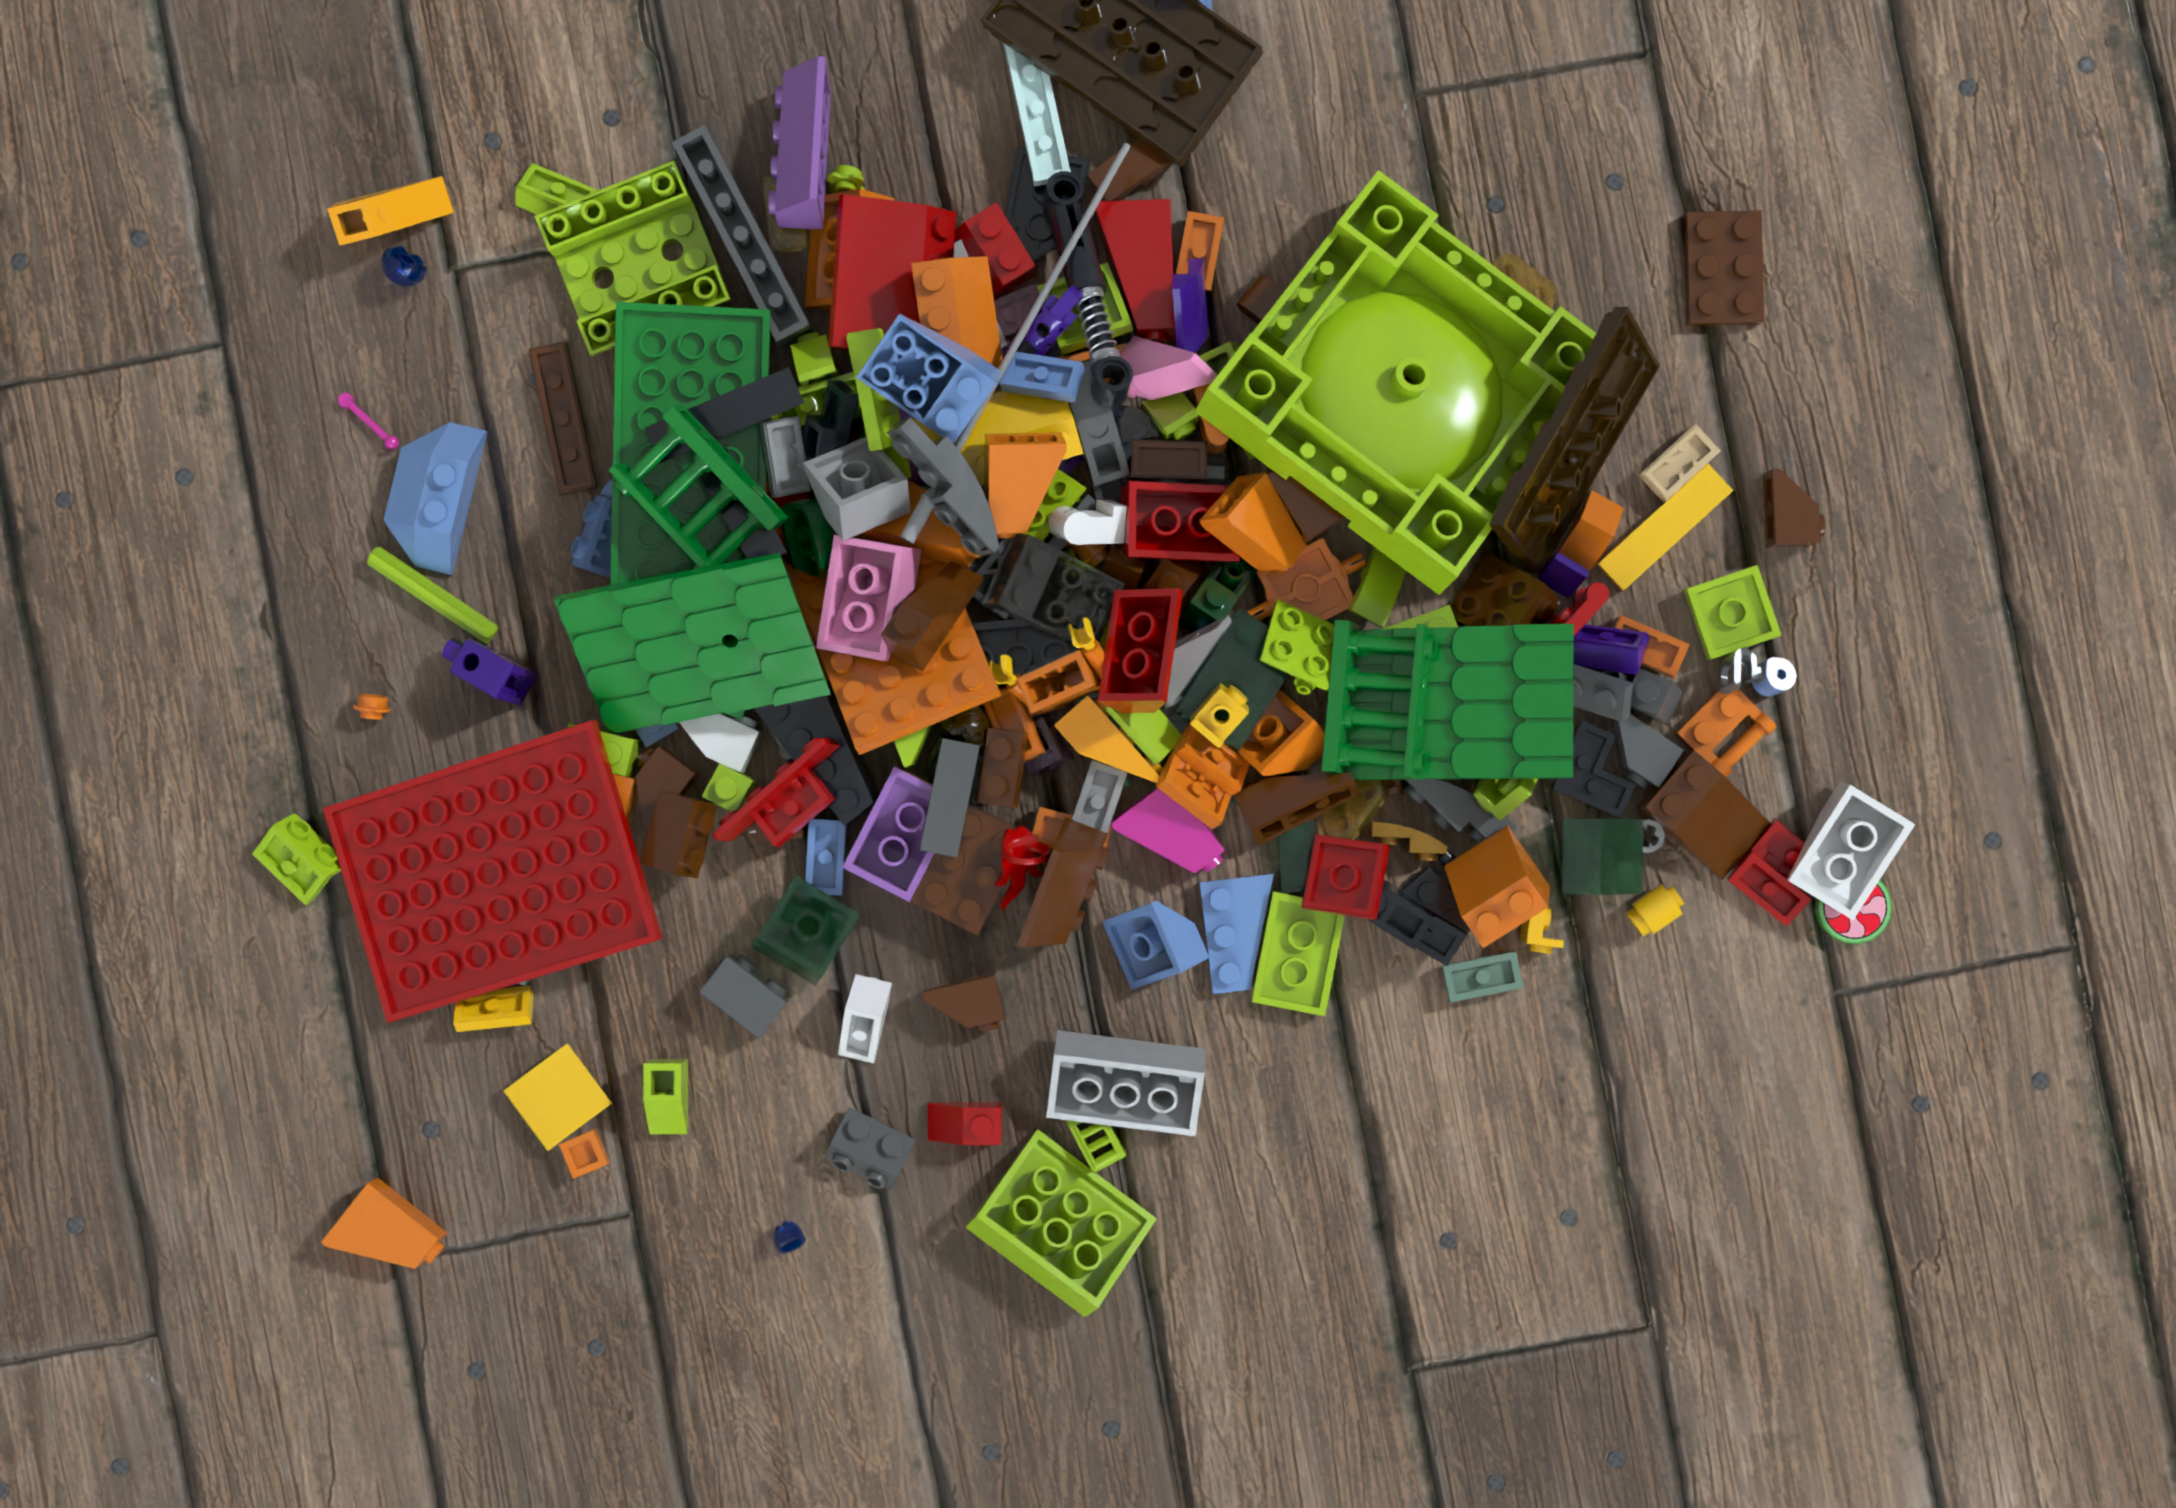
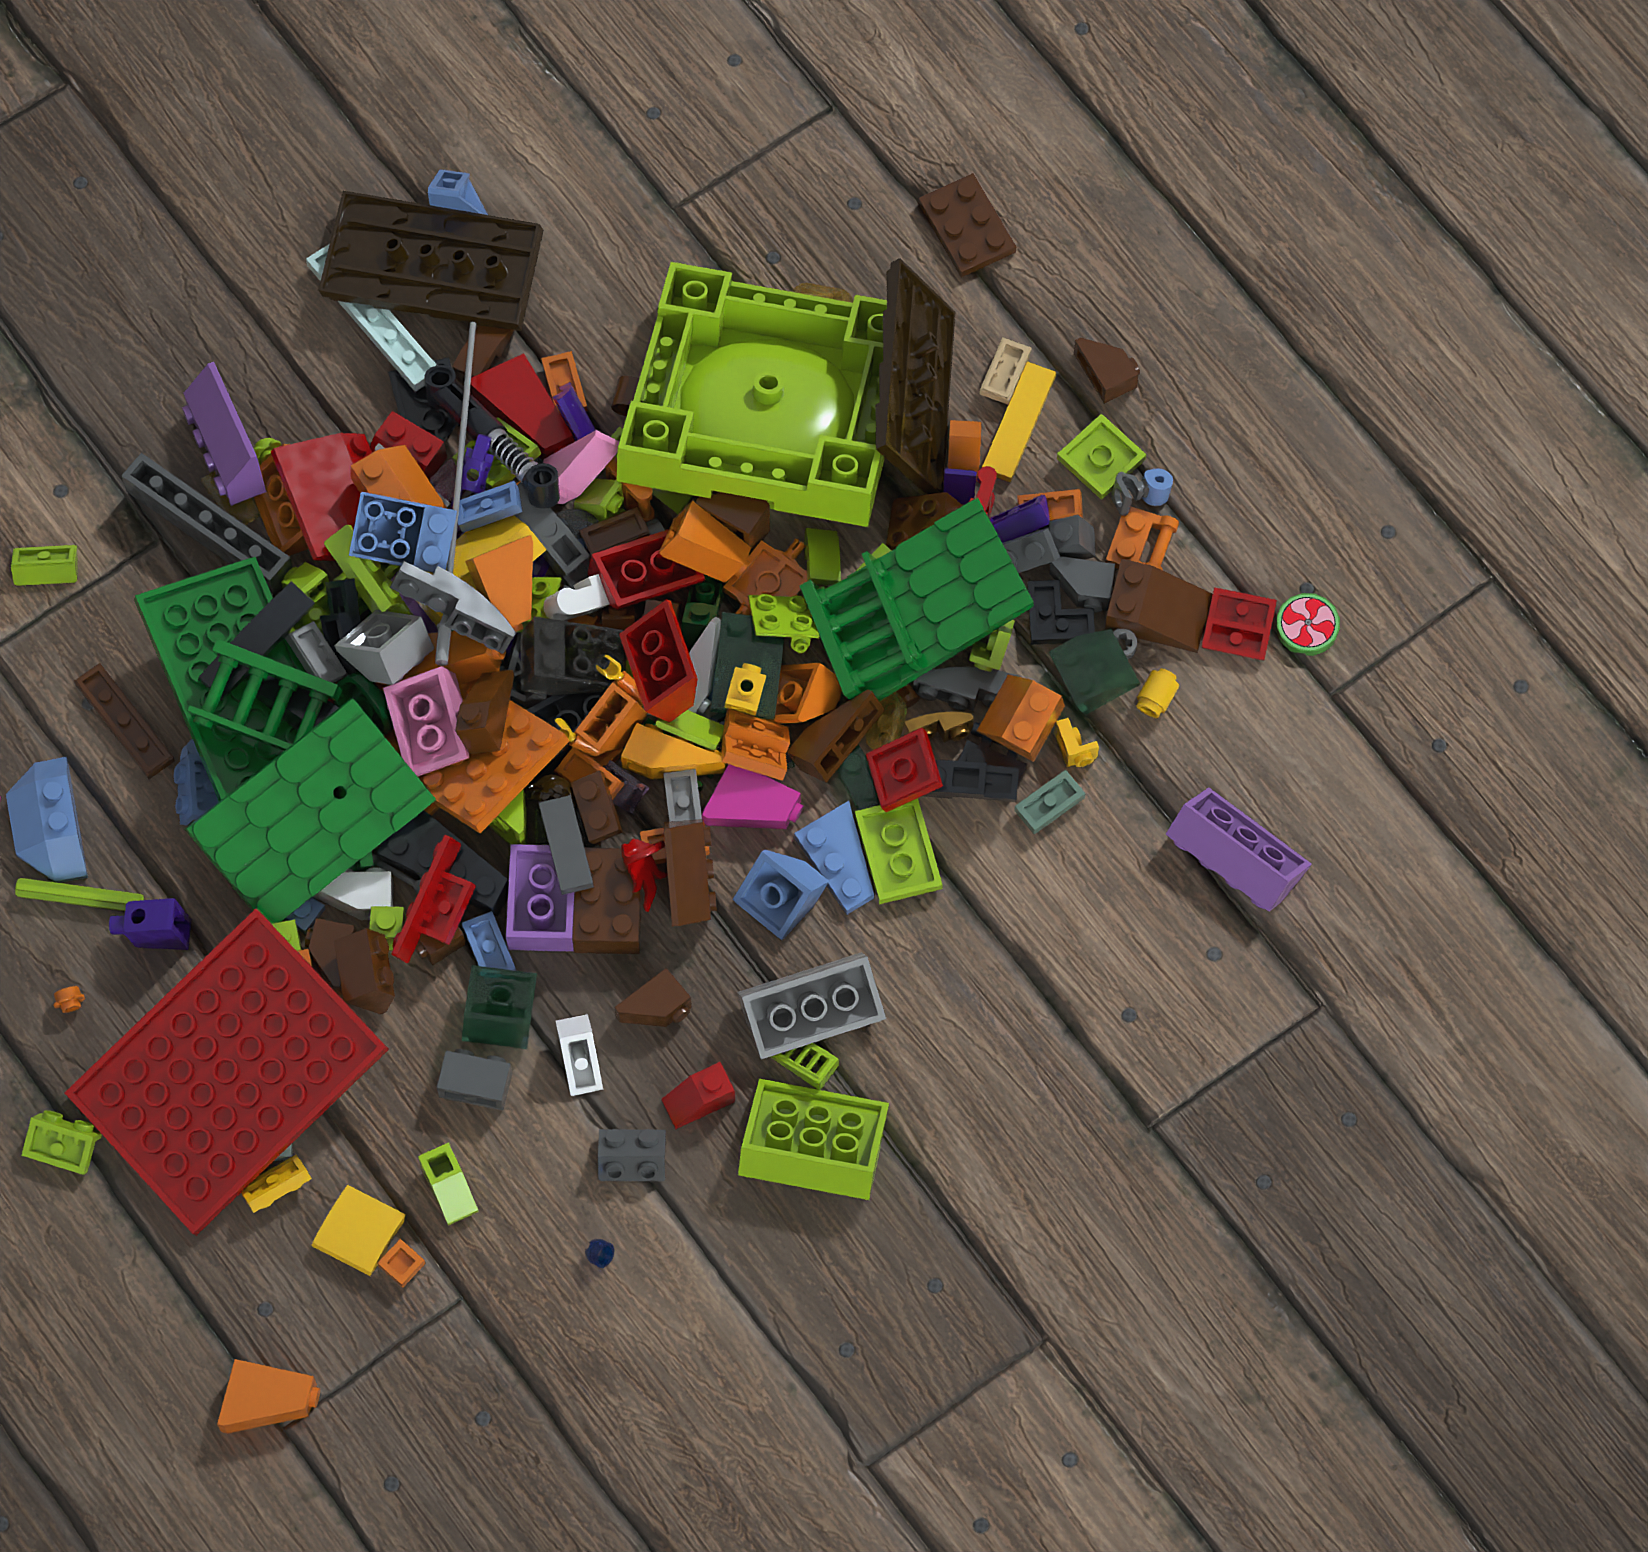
camera: 30 degrees left, 20 degrees down
(626, 233) = (111, 565): lime slope -> none
(1652, 1124) = (1237, 849): none -> medium lavender slope
(1849, 849) = (1278, 577): white slope -> none

